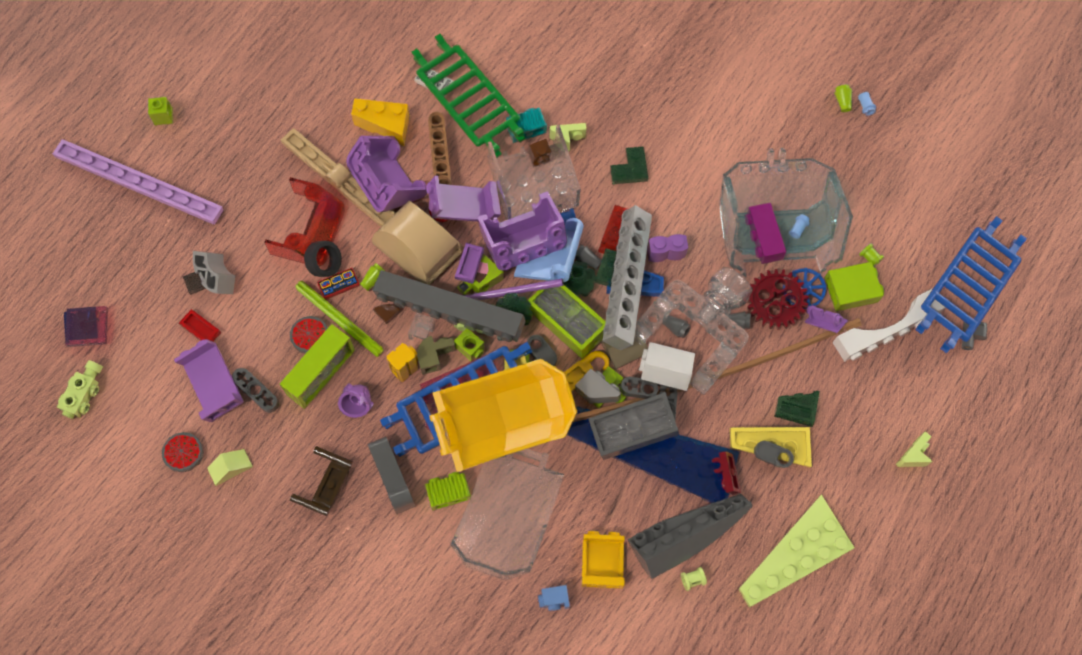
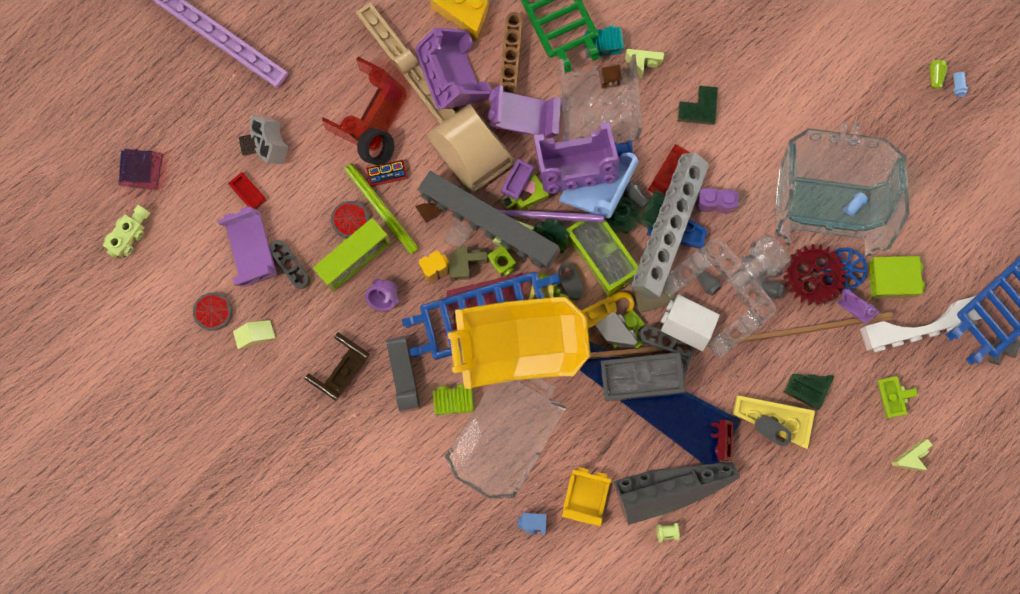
camera: 15 degrees right, 10 degrees up
(371, 277) = (420, 173): lime cone -> none
(765, 233) = (819, 205): magenta brick -> none
(805, 548) = (782, 525): yellowish green wing -> none
(871, 255) = (922, 248): lime bush -> none
(882, 399) = (894, 396): none -> lime hinge

